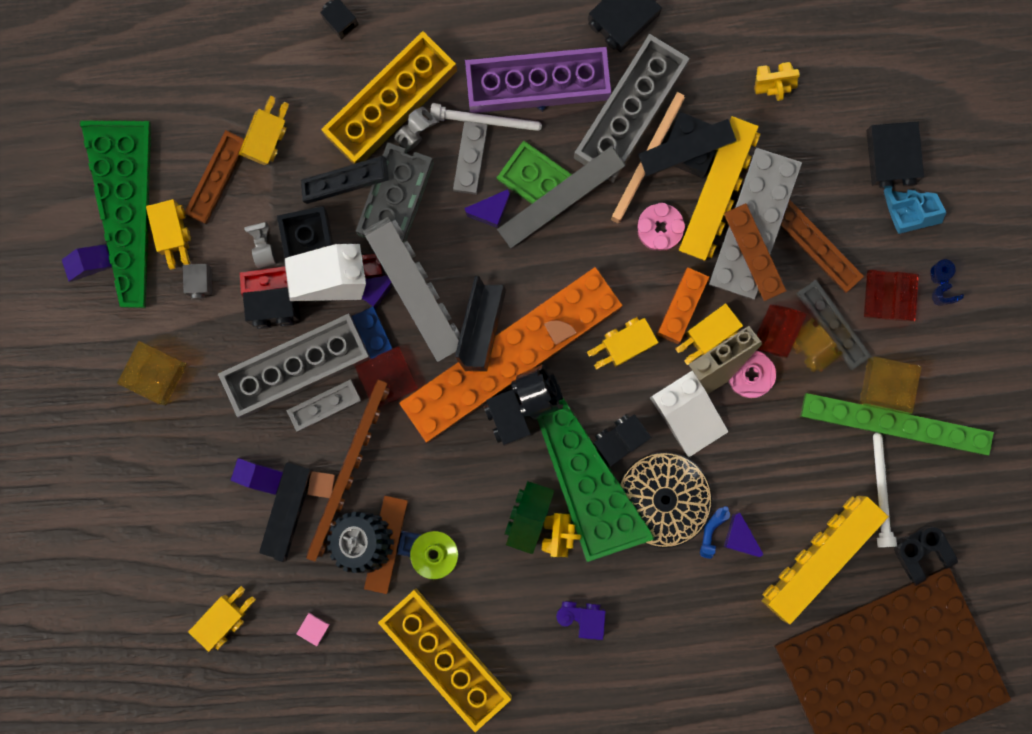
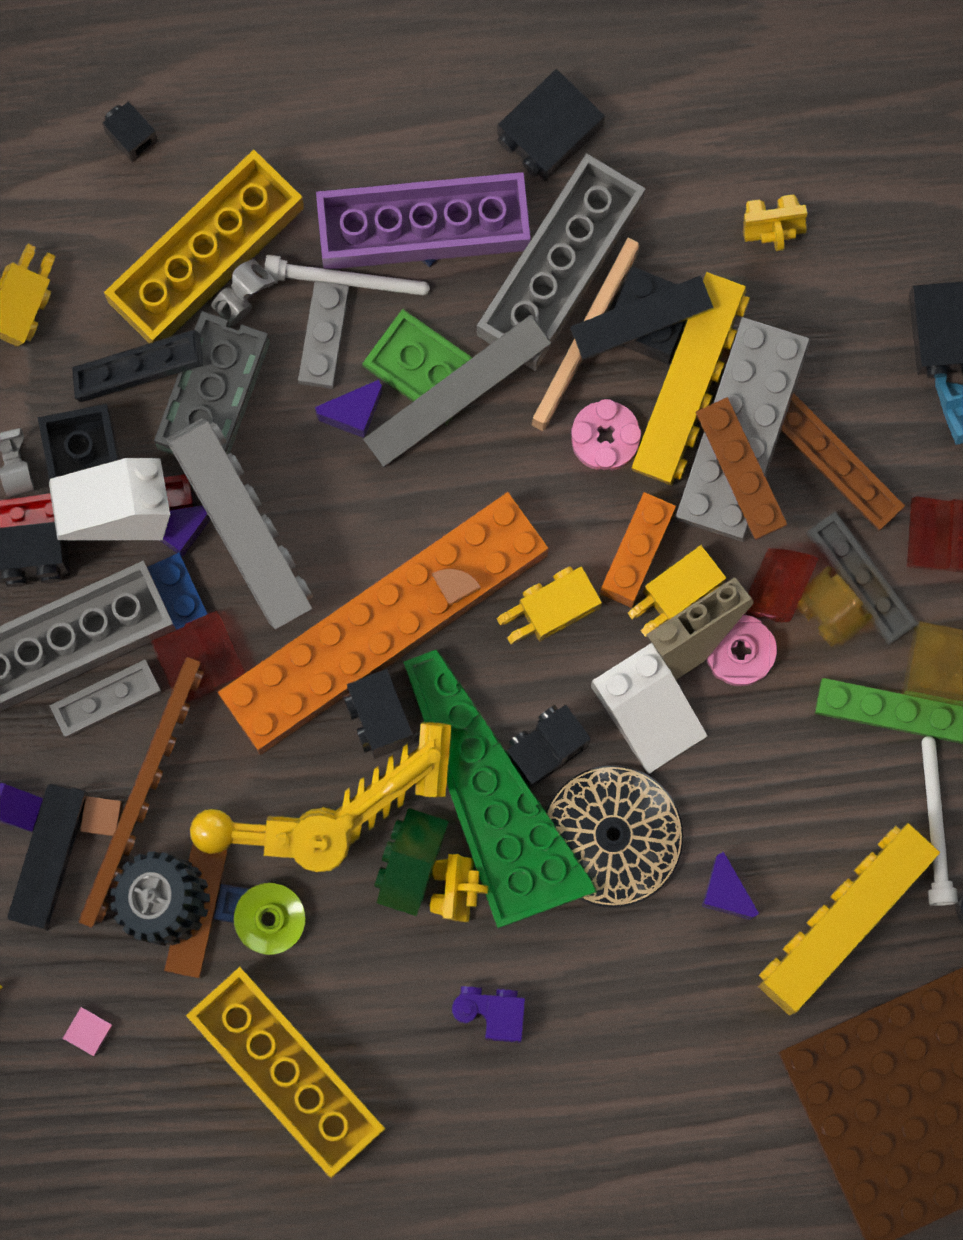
camera: 10 degrees left, 5 degrees down
(470, 499) = (323, 835): none -> yellow piece
(480, 325) = (338, 578): black panel -> none
(538, 392) = (423, 674): black brick -> none
(719, 517) = (691, 865): blue piece -> none

